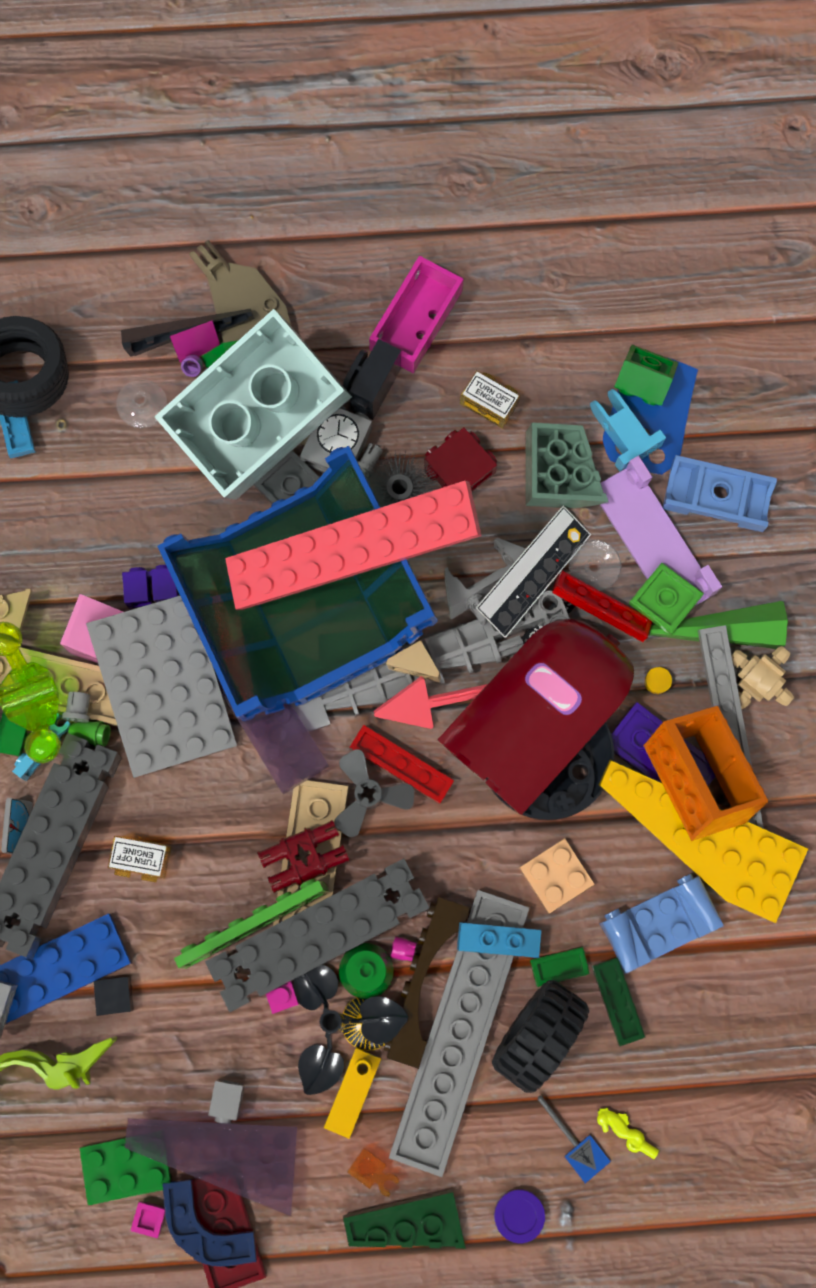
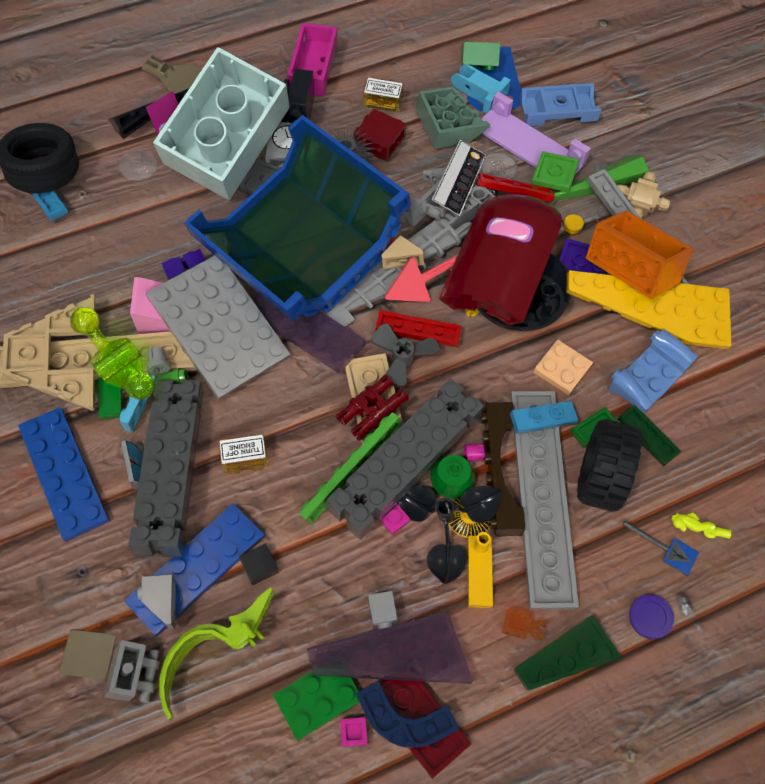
camera: 20 degrees left, 15 degrees down
(354, 545) = (329, 175): coral plate -> none

